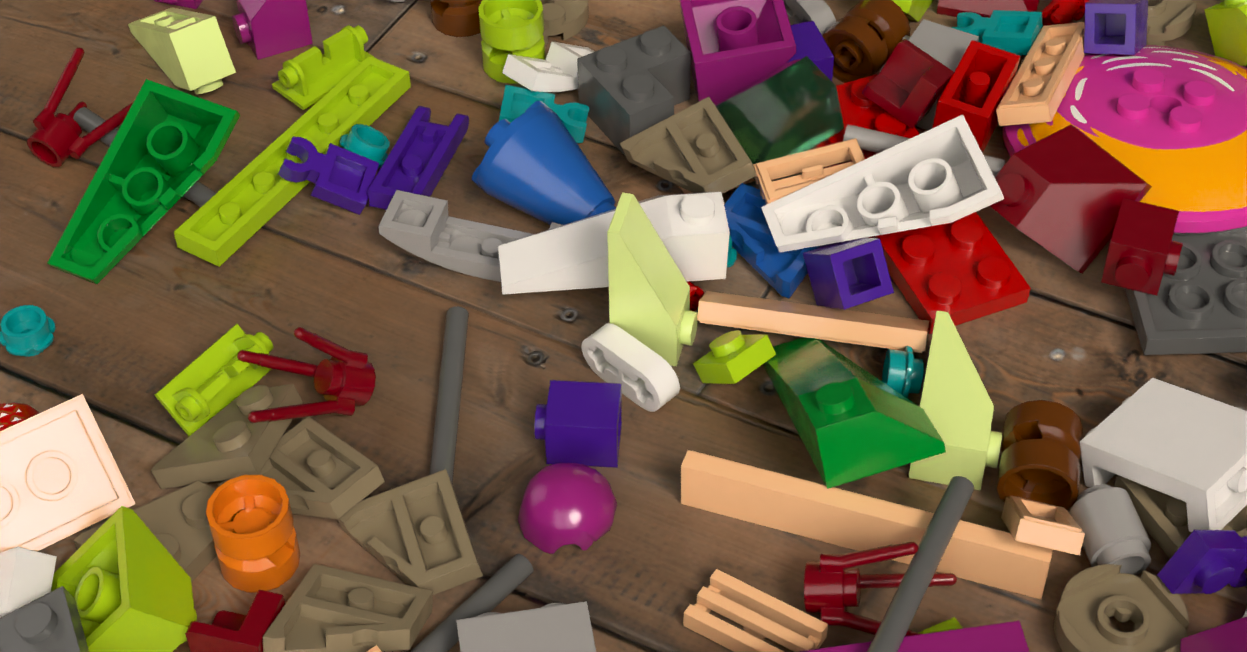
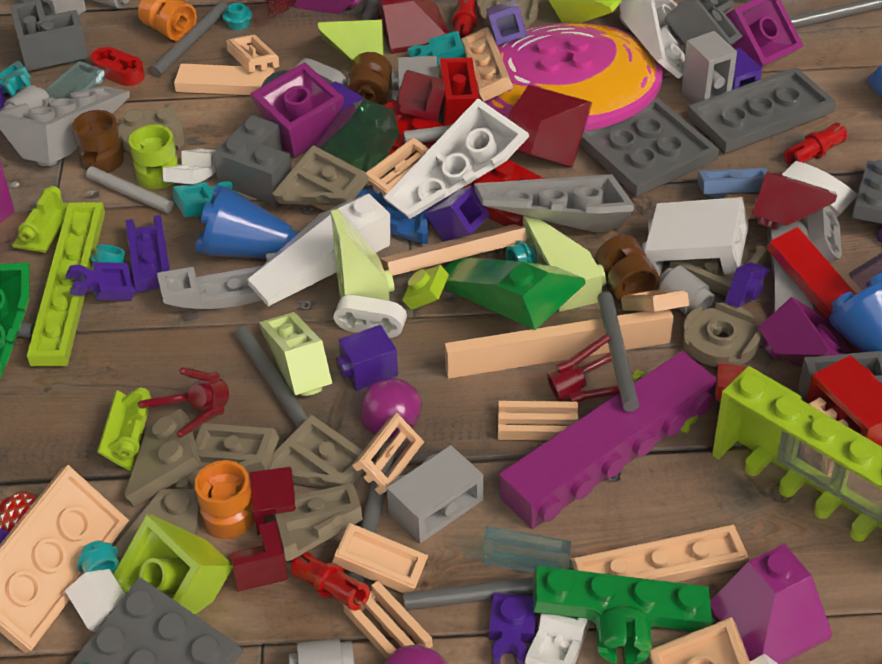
camera: 30 degrees left, 0 degrees up
(49, 534) = (98, 556): none -> teal plate
(314, 555) = (272, 493): none -> dark red panel
(461, 590) = (373, 470): none -> light nougat tile
(462, 69) = (130, 190): none -> light grey bar
(493, 376) = (297, 353): none -> yellowish green slope
(1015, 319) = (576, 202): none -> light grey wedge
(1142, 247) = (606, 137): dark red brick -> none

